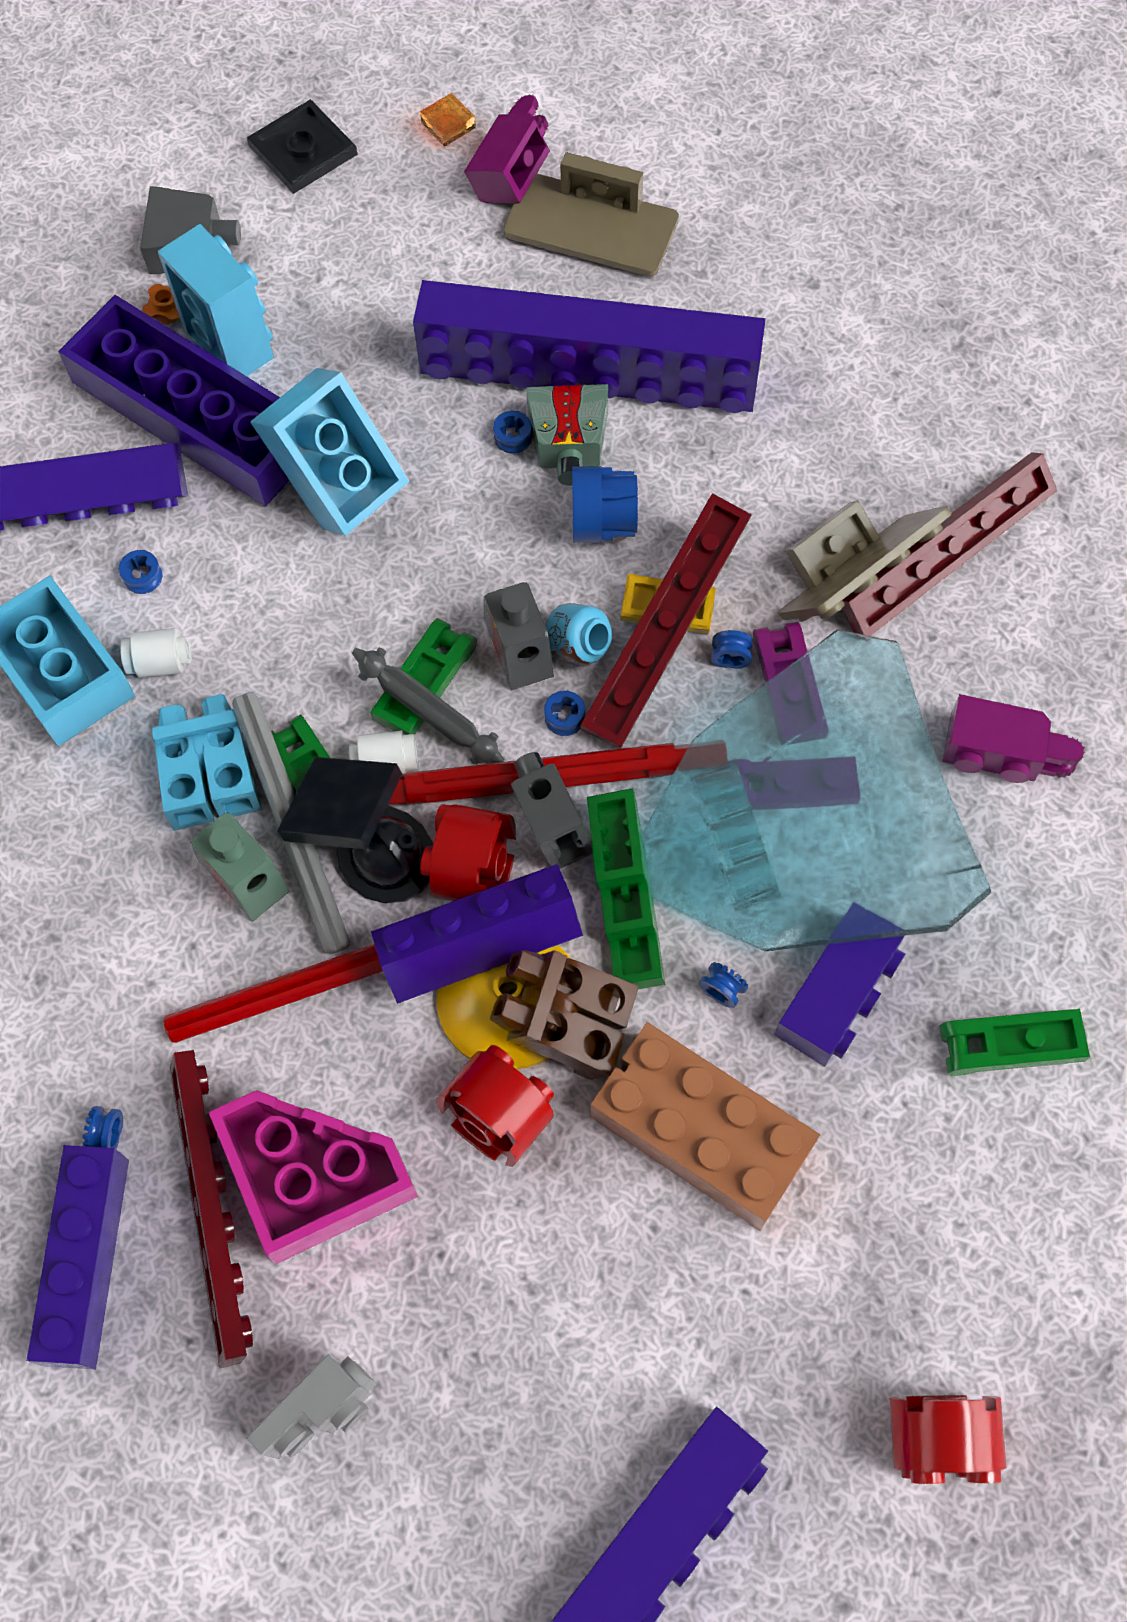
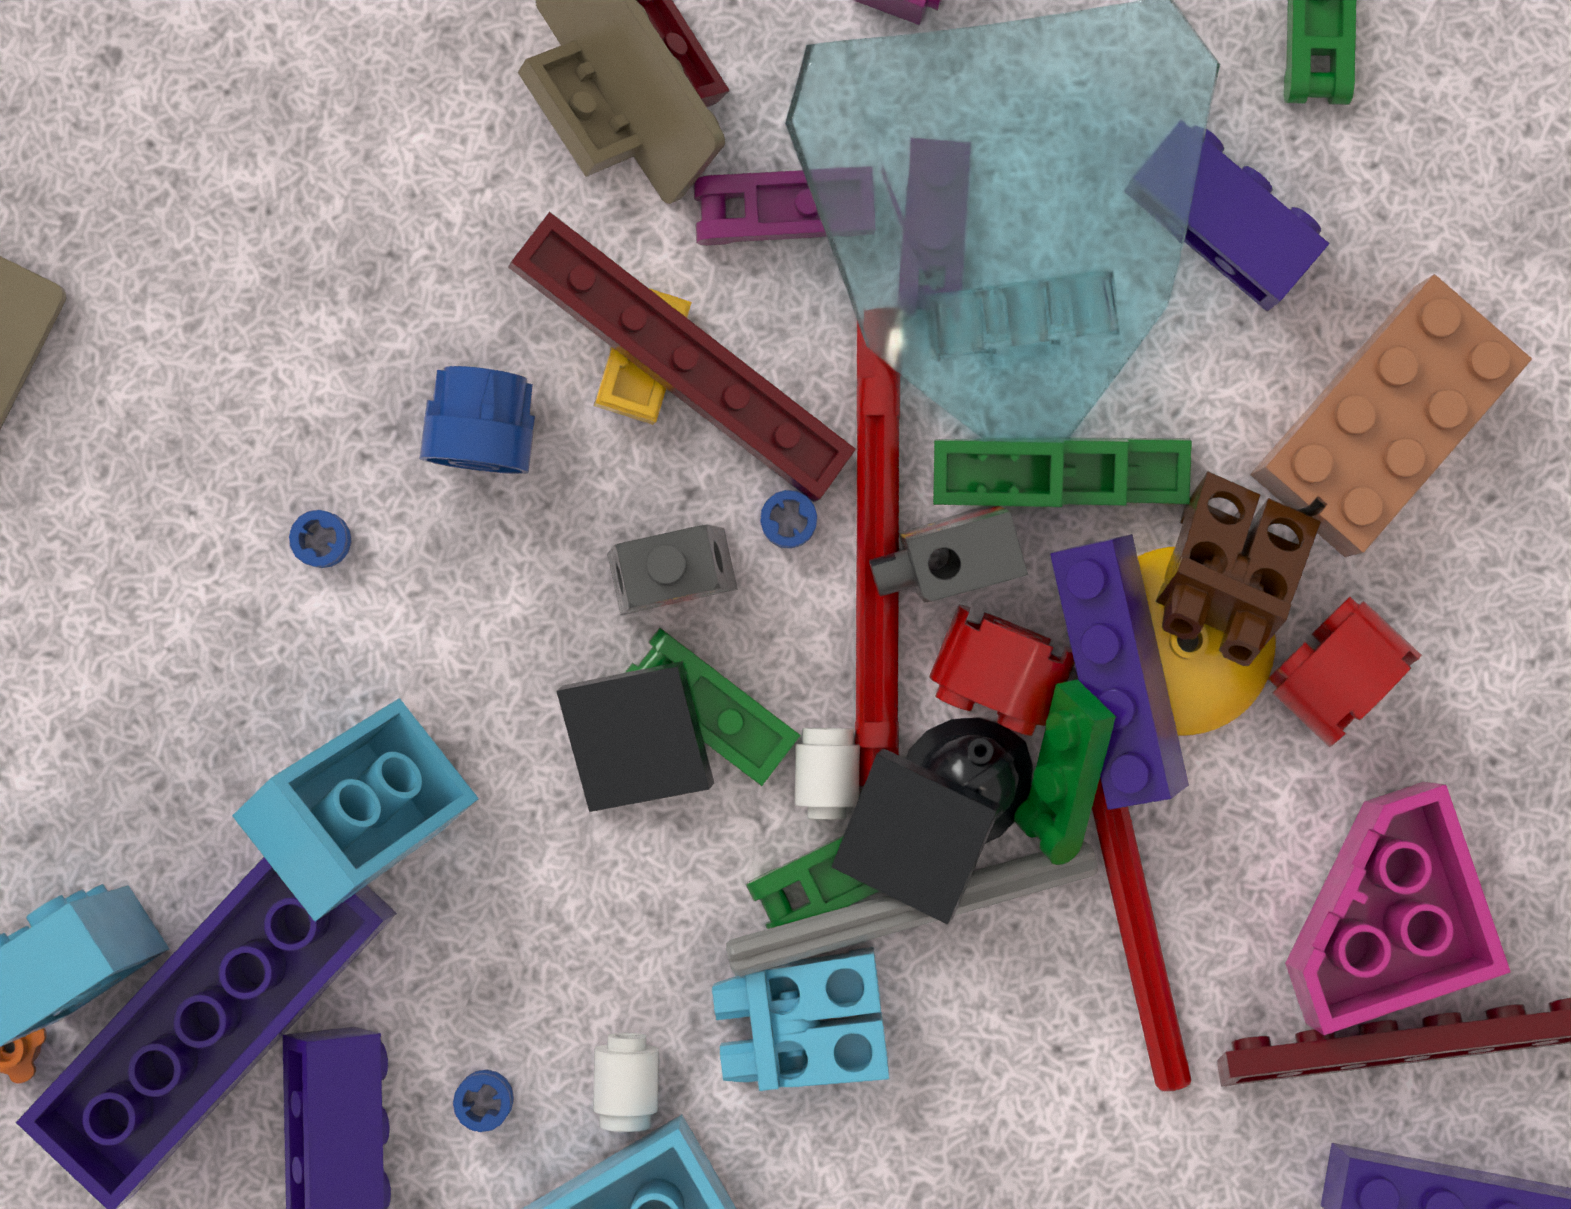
camera: 85 degrees left, 20 degrees up
(103, 1128) = (1303, 1172): blue bush -> none
(234, 861) = (969, 983): sand green torso -> none
(394, 903) = (1067, 772): none -> green plate
(401, 622) = (635, 736): none -> black tile
(427, 706) = (769, 706): dark grey wheel -> none
(568, 426) = (333, 456): torso -> none
(578, 633) = (681, 484): medium azure head -> none
(586, 341) = (209, 405): dark purple brick -> none
(723, 985) = (1205, 364): blue bush -> none
(731, 649) = (726, 276): blue bush -> none

